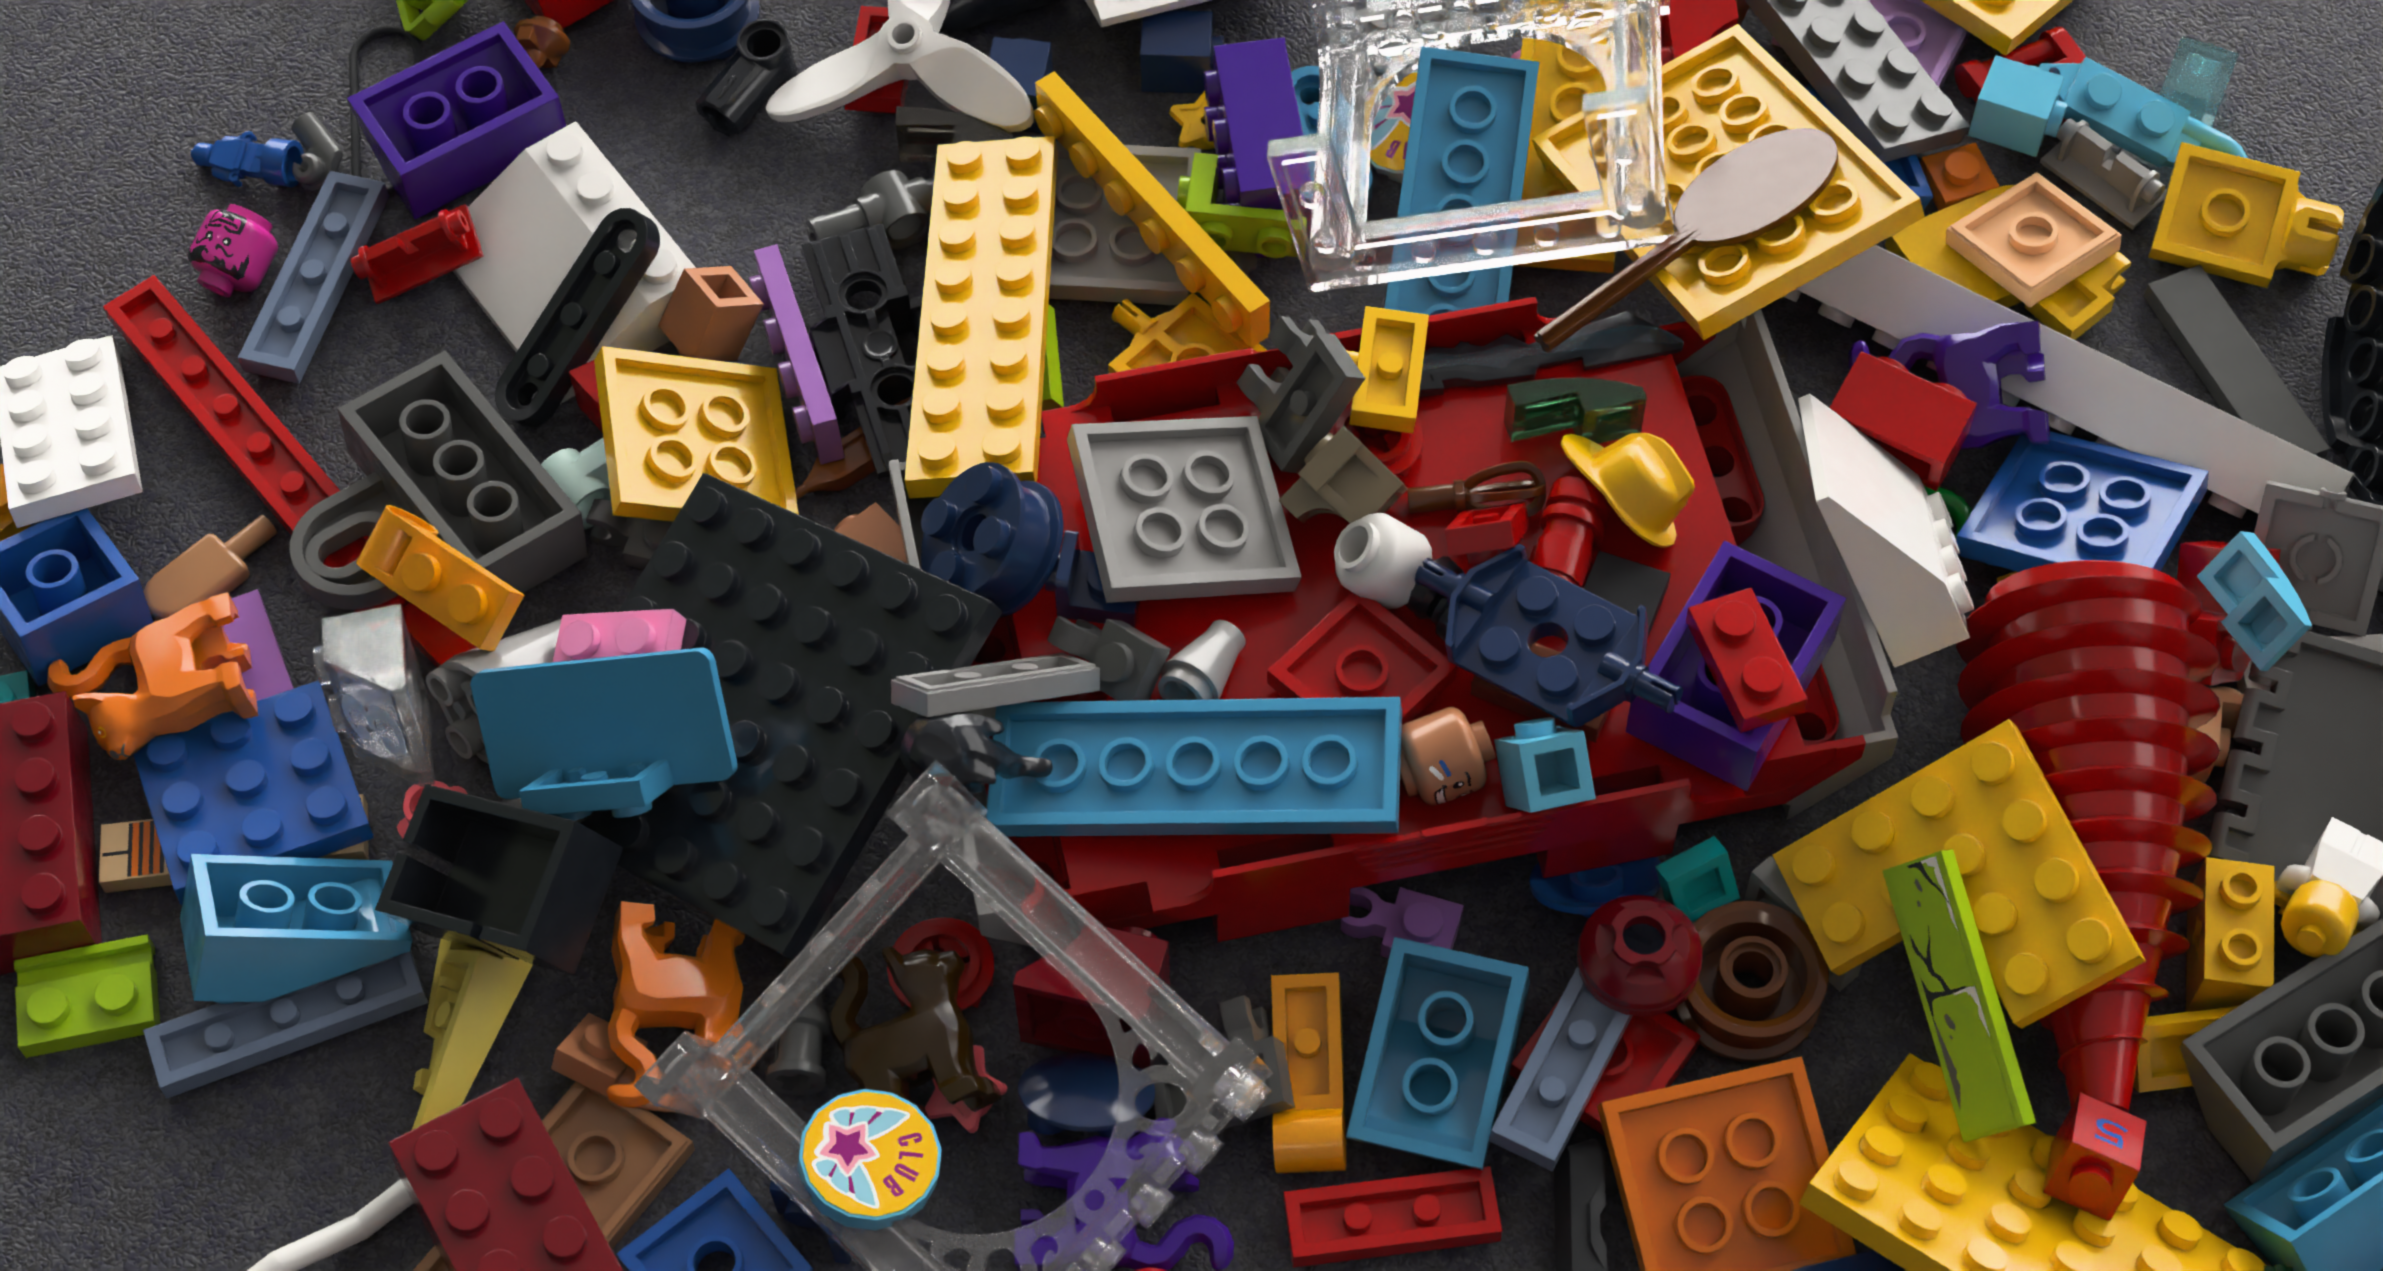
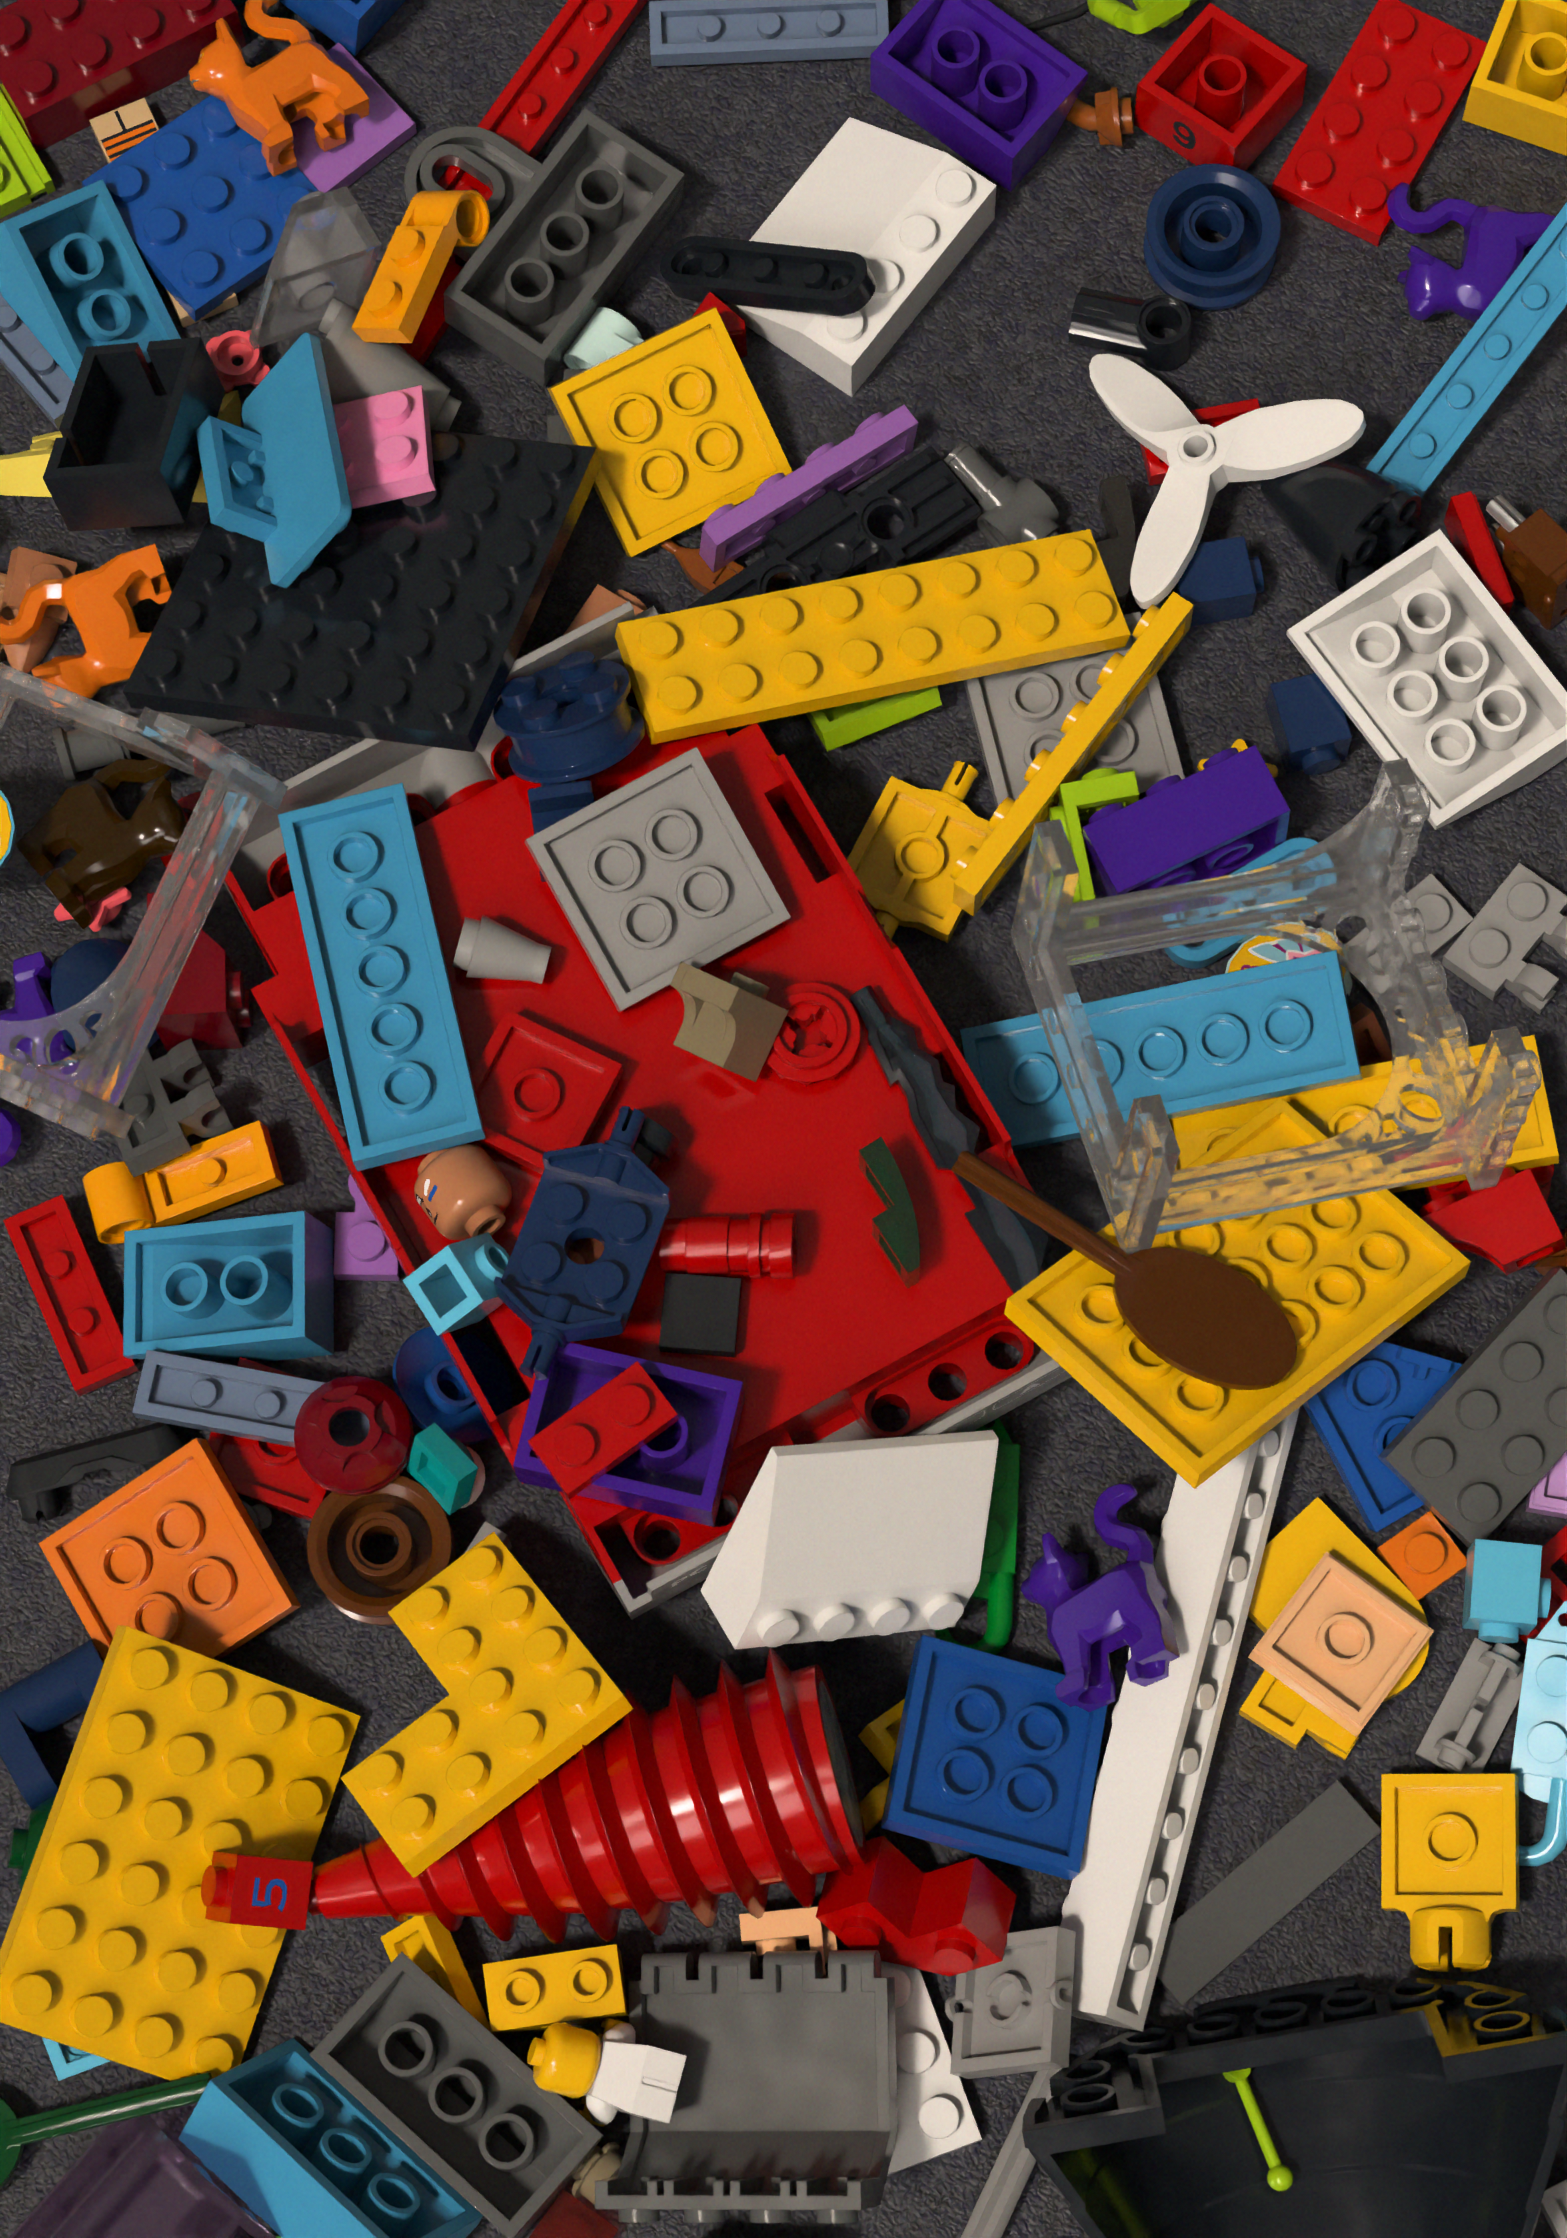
camera: 75 degrees right, 15 degrees up
(205, 570) = (422, 72): medium nougat piece -> none
(419, 254) = (818, 107): red hinge -> none
(710, 313) = (822, 393): nougat brick -> none
(965, 751) = (308, 756): black piece -> none
(994, 684) = (399, 772): light grey tile -> none
(1126, 657) = (481, 876): dark grey plate -> none
(1308, 400) = (814, 951): dark grey plate -> none
(1380, 559) = (653, 1075): white head -> none
(1392, 364) = (866, 1016): yellow plate -> none
(1467, 495) = (768, 1131): reddish brown piece -> none
(1487, 531) = (706, 1162): red plate -> none
(1639, 480) = (813, 1281): yellow piece -> none
(1906, 415) = (1029, 1544): red piece -> none
(1958, 996) = (356, 1722): lime tile -> none
(2259, 600) = (883, 1946): medium azure slope -> none

